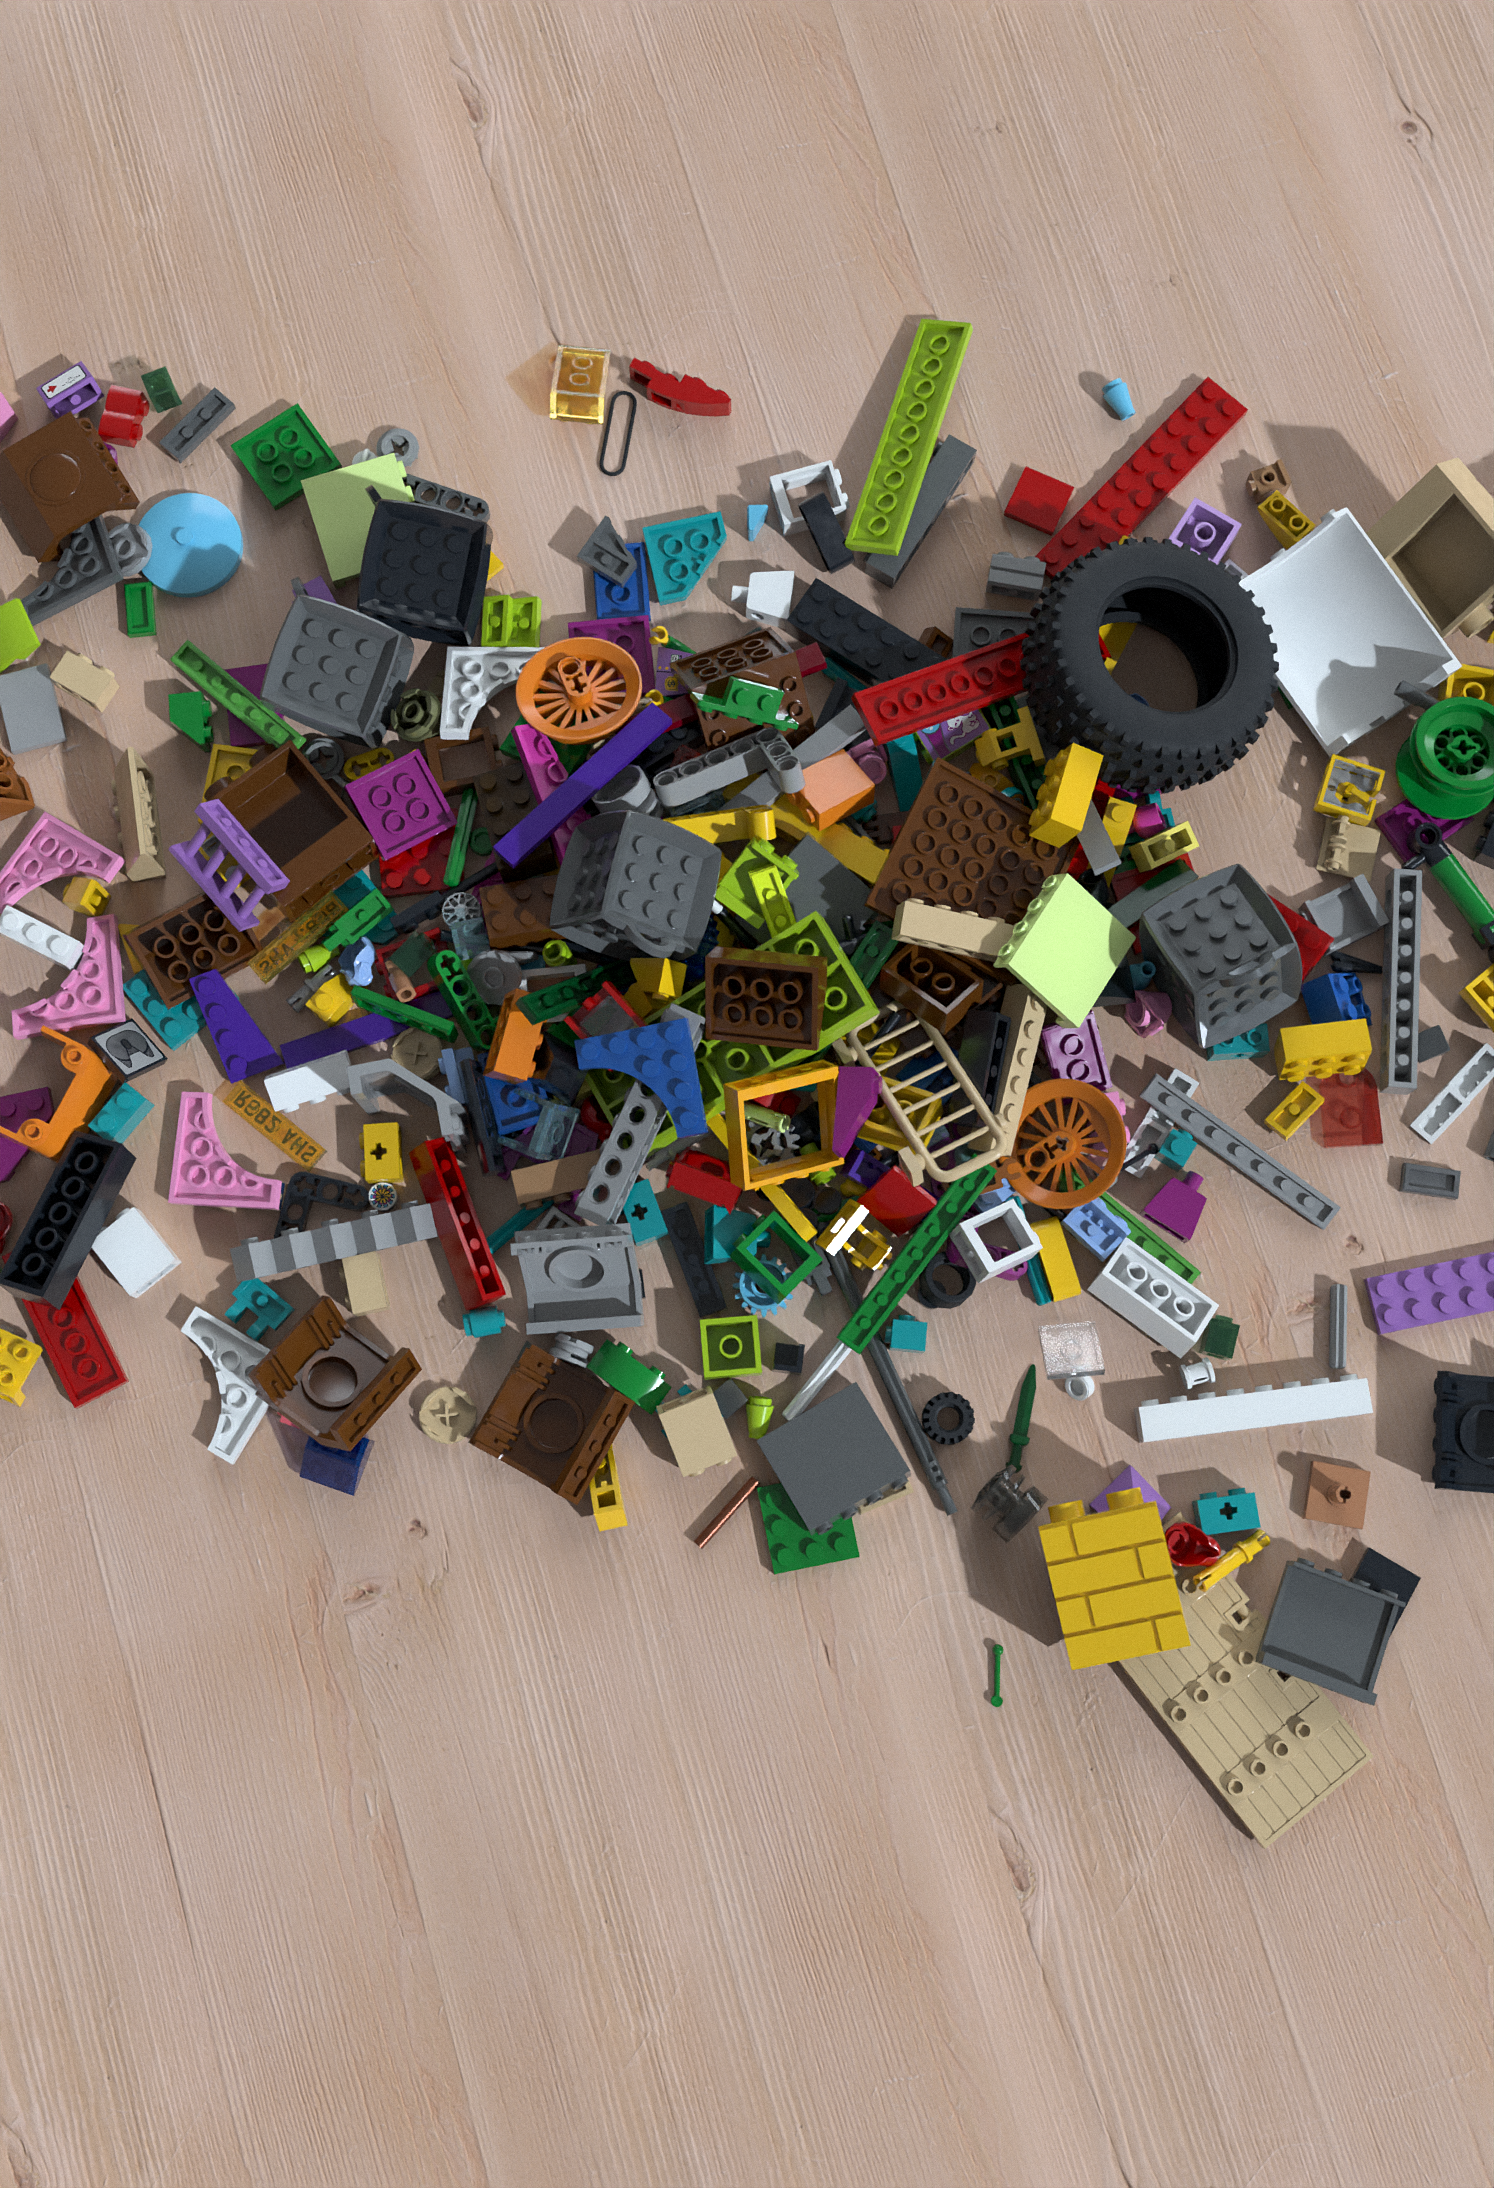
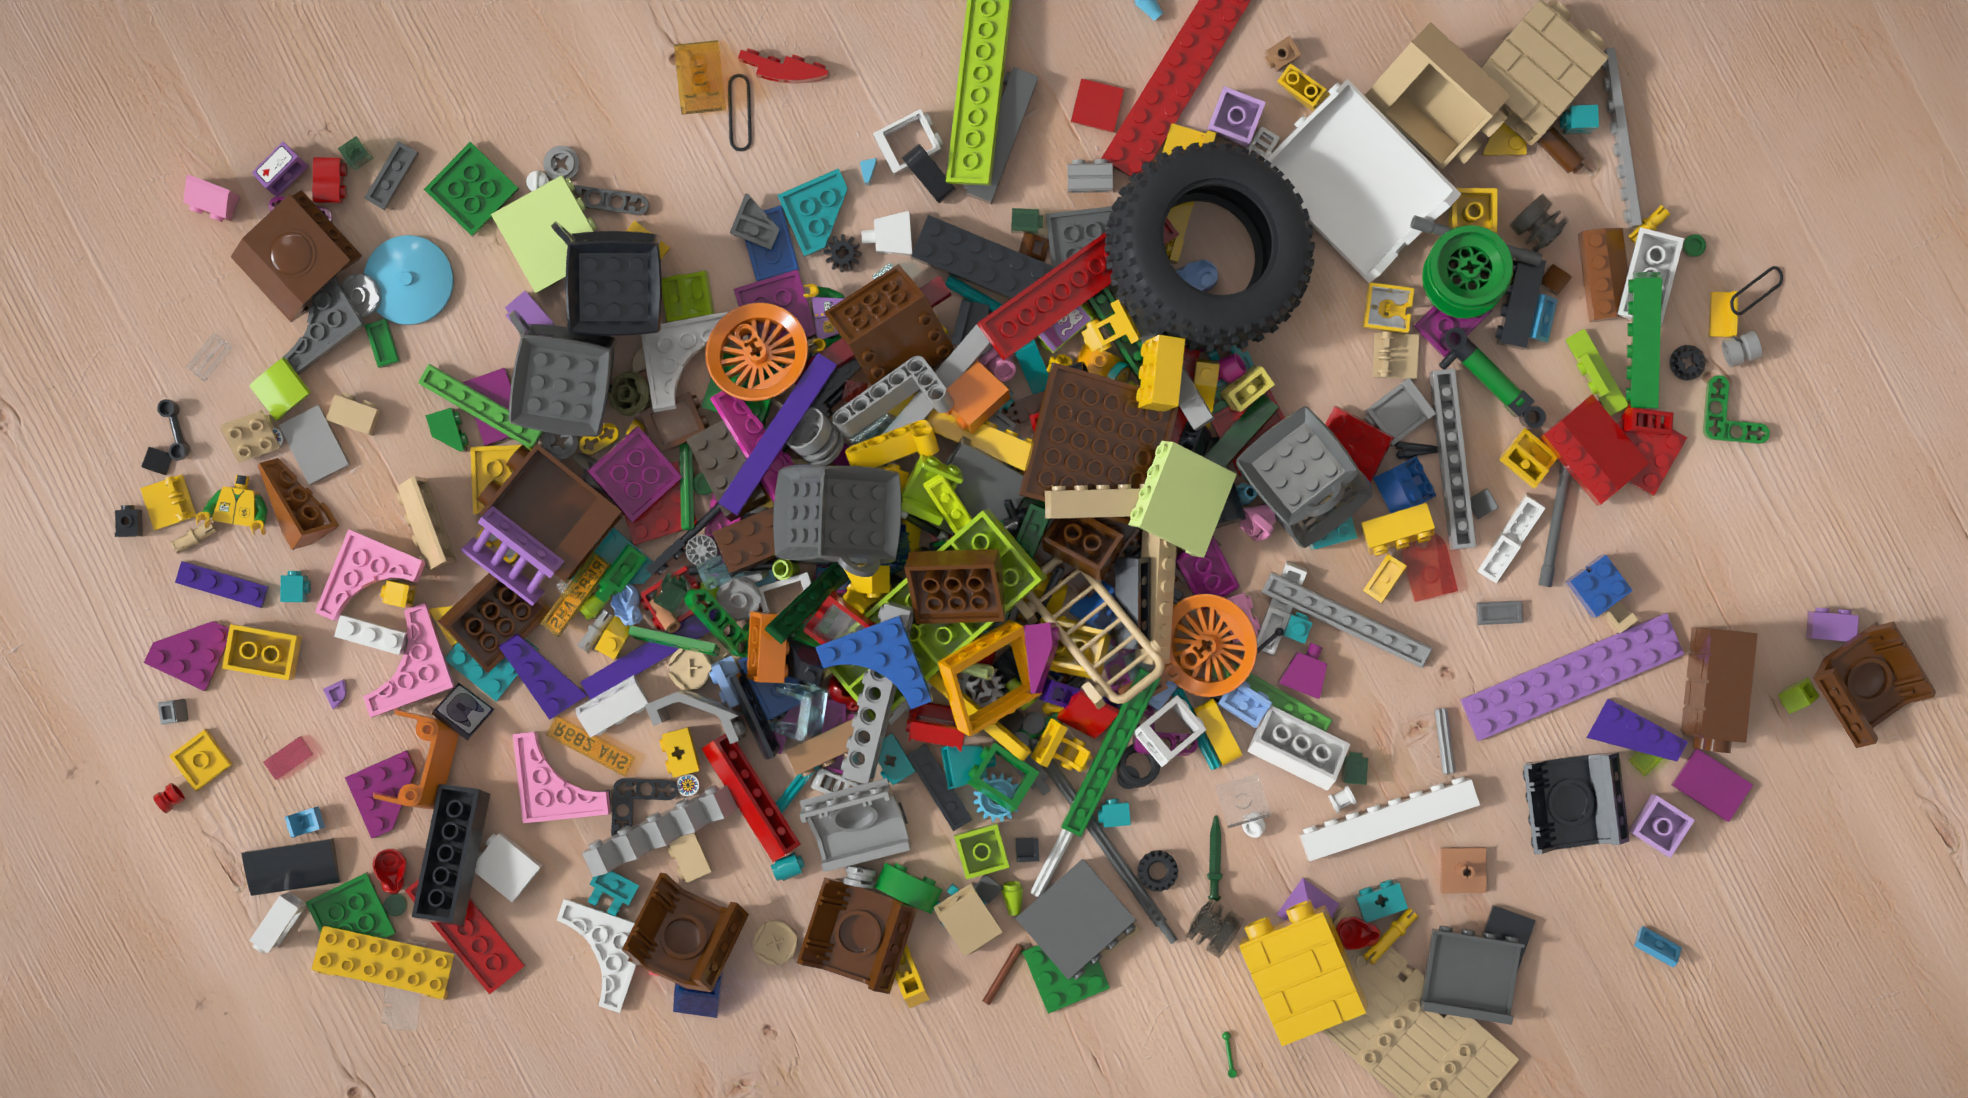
camera: 15 degrees left, 10 degrees up
(121, 1114) = (470, 762): teal brick -> none
(696, 603) = (837, 248): none -> black gear
(748, 700) = (895, 345): green bracket -> none
(930, 610) = (1026, 221): none -> clear green brick

